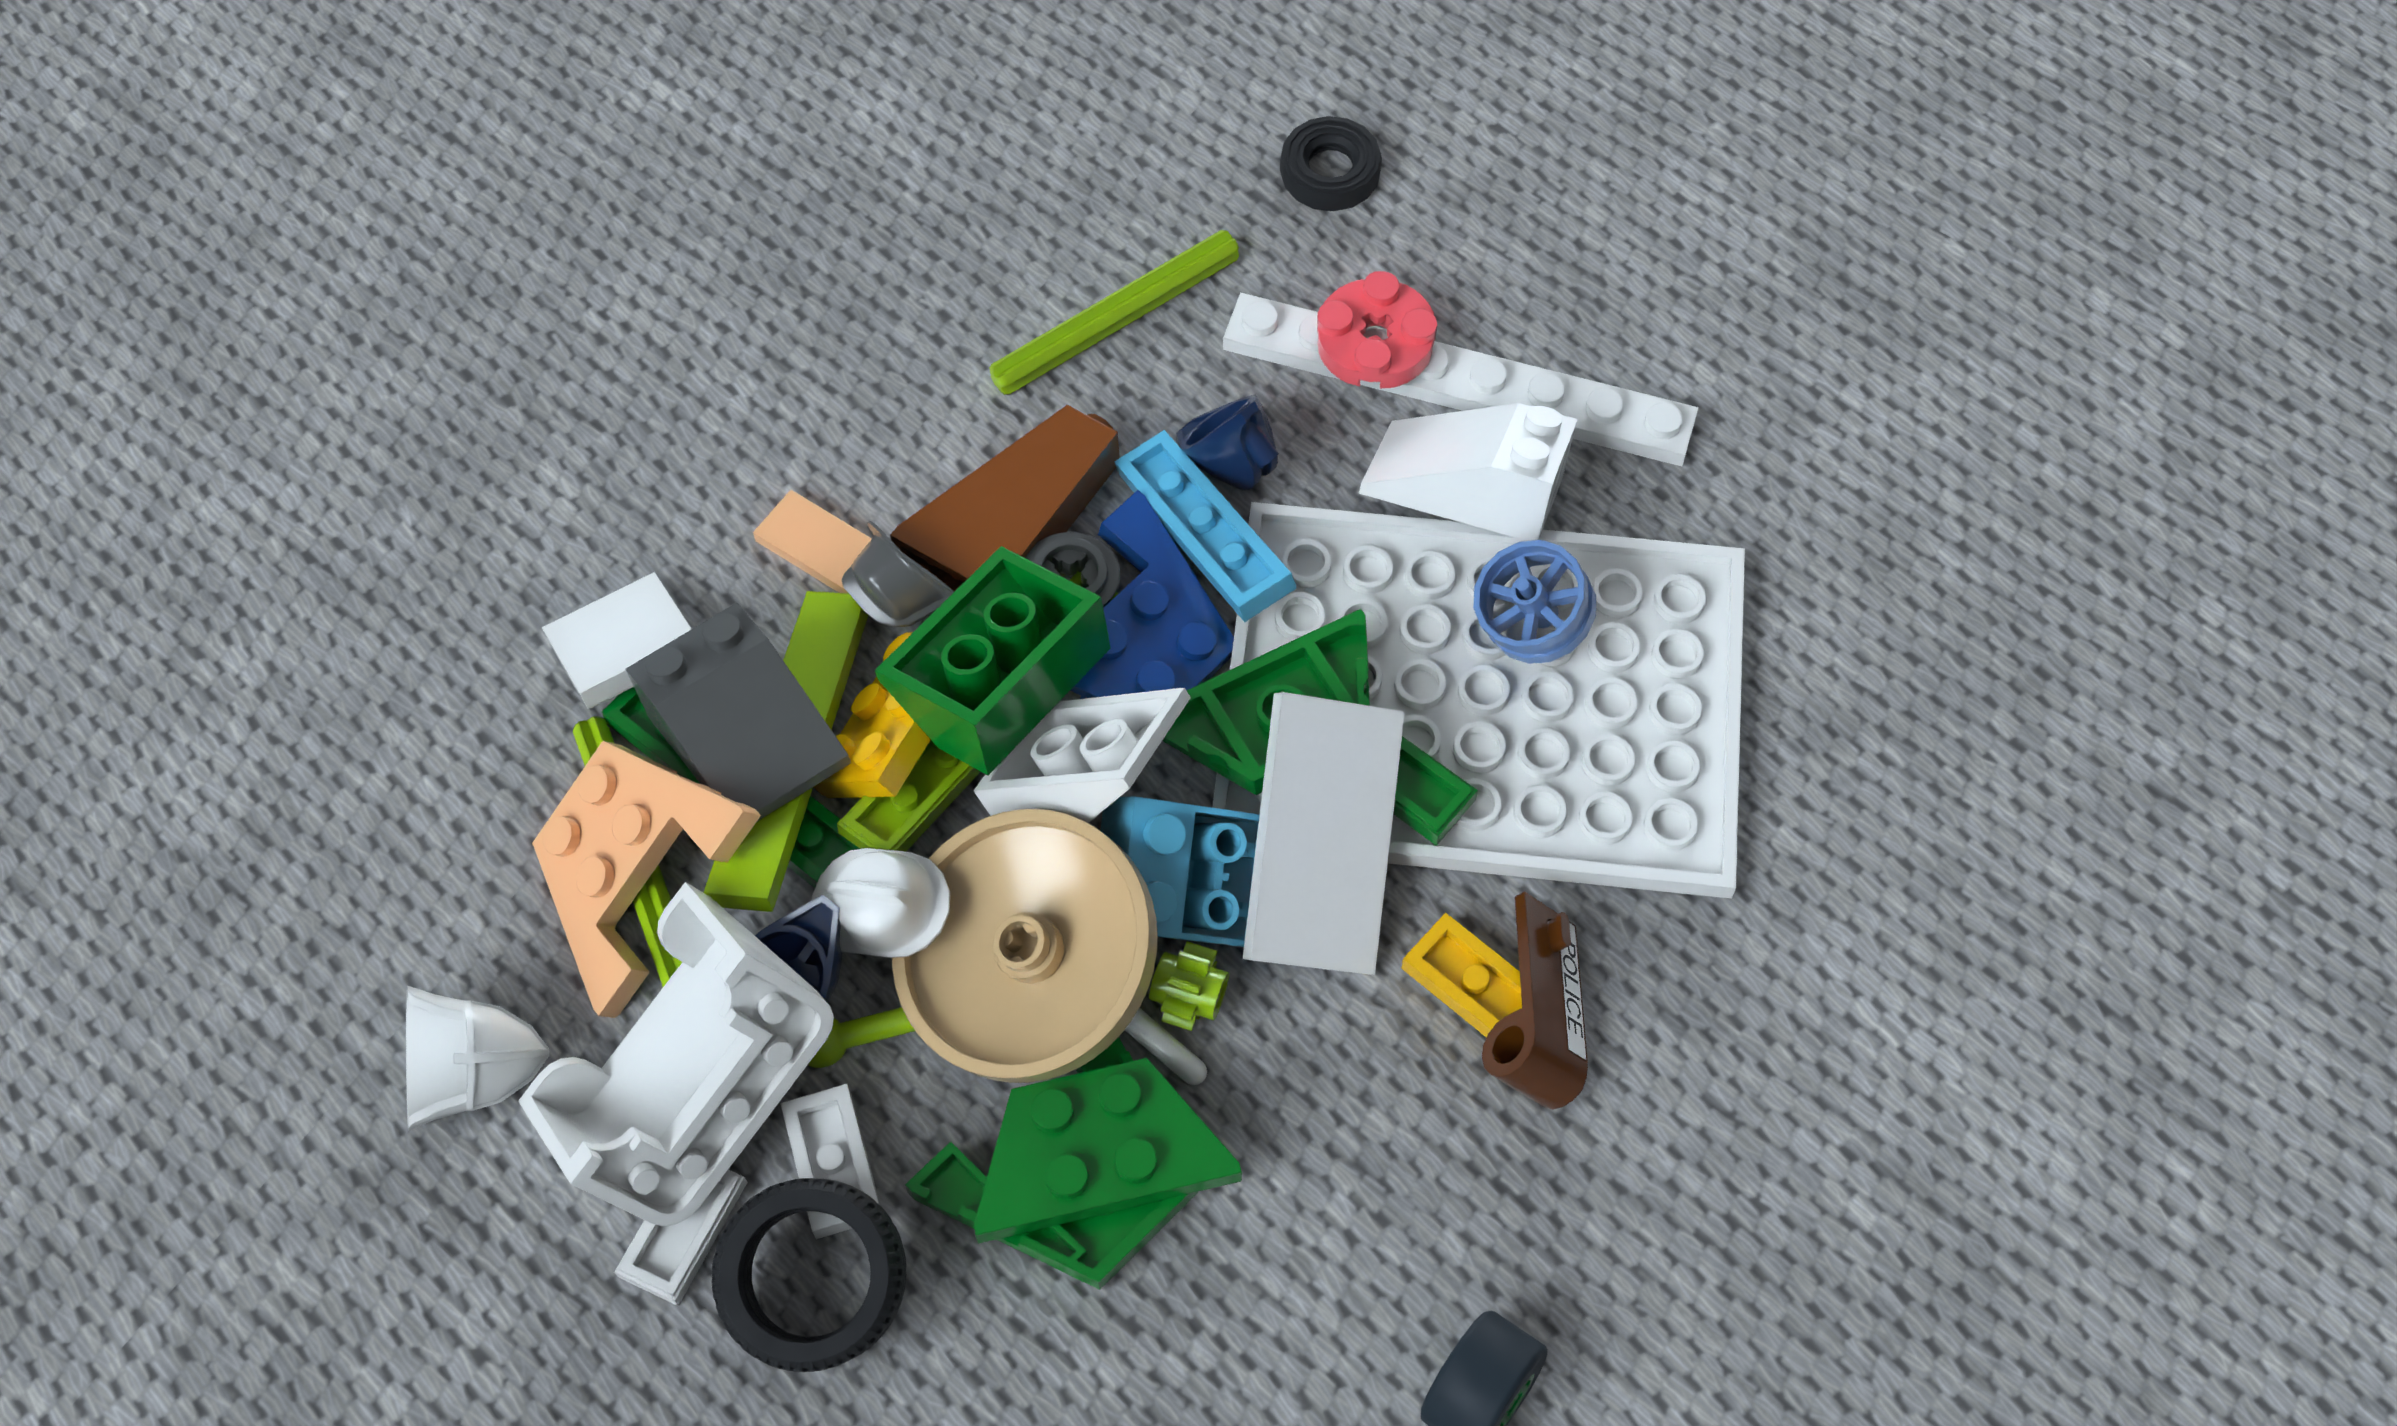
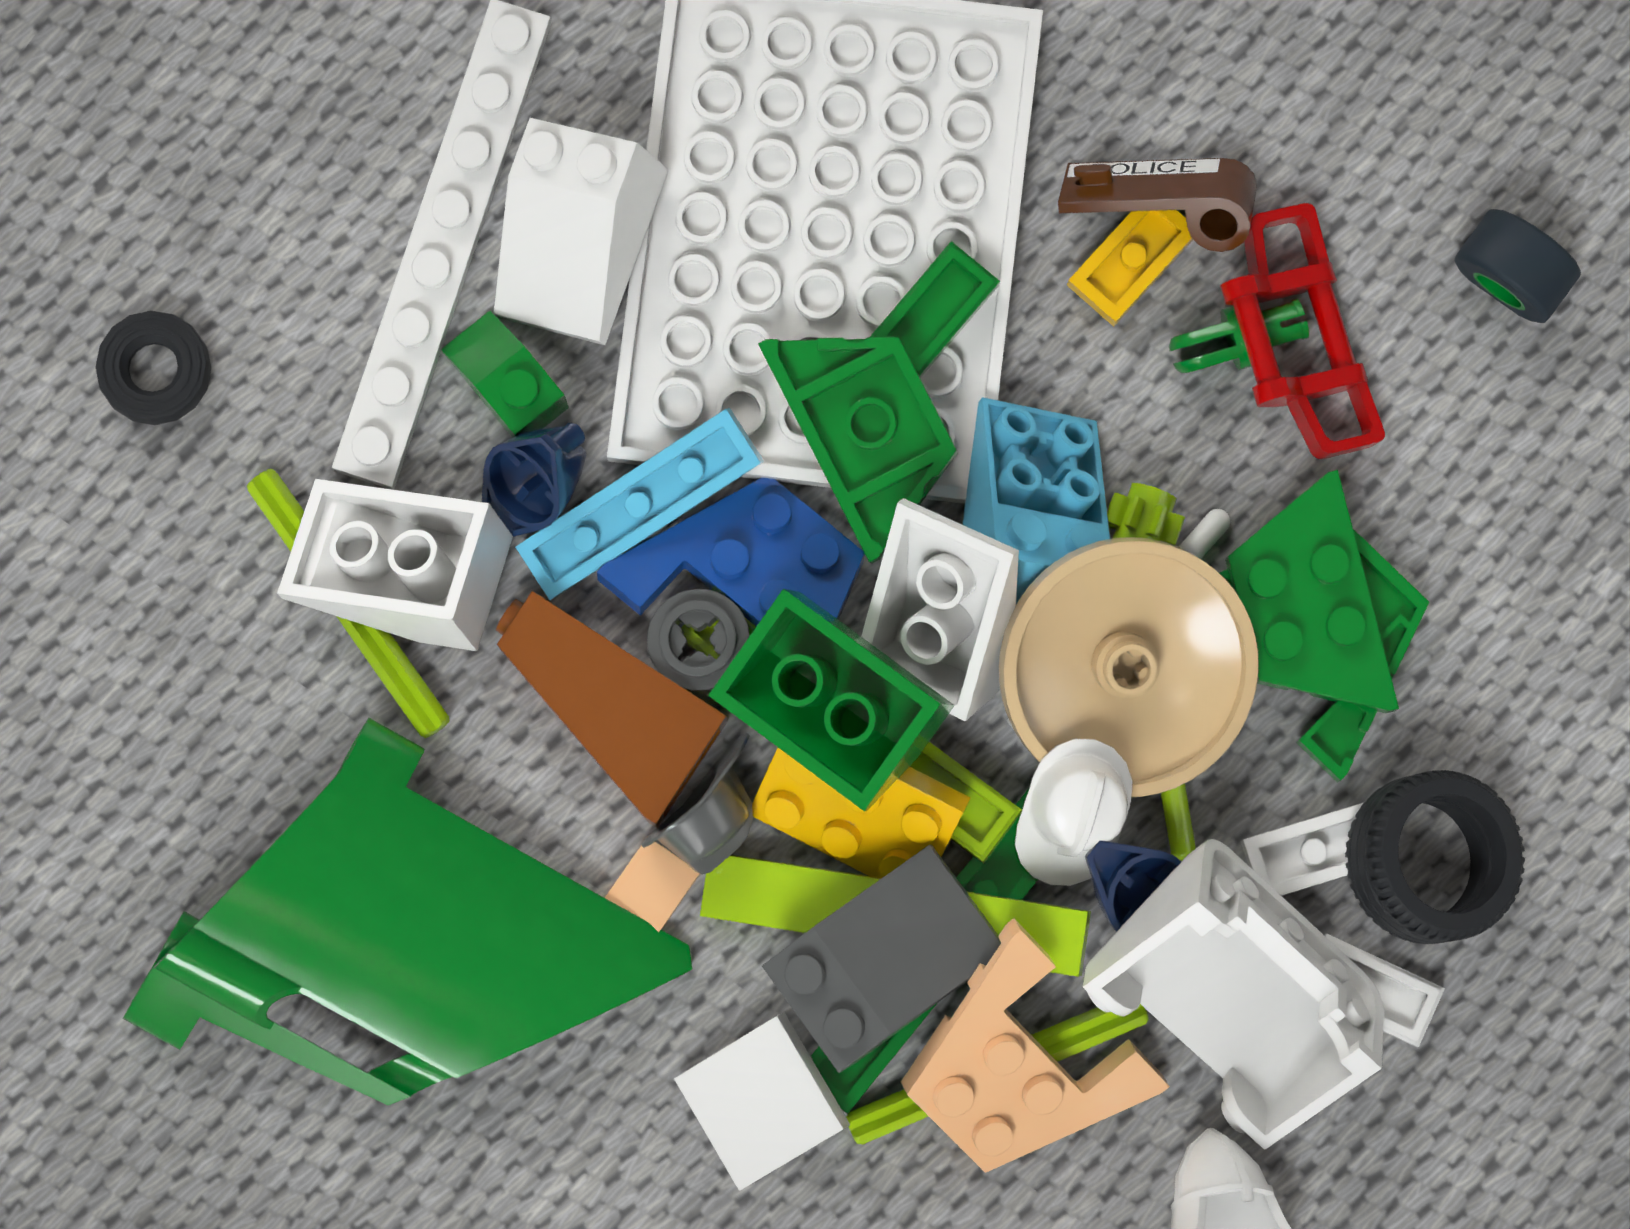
camera: 90 degrees left, 20 degrees up
(803, 346) = (405, 931): none -> green panel
(1147, 336) = (398, 561): none -> white slope
(1323, 425) = (505, 376): none -> green slope
(1323, 834) = (1006, 385): white tile -> none
(1383, 303) = (405, 283): coral plate -> none
(1393, 1090) = (1236, 348): none -> green arm
(1458, 1174) = (1317, 280): none -> red bar
(1534, 601) = (753, 172): medium blue wheel -> none

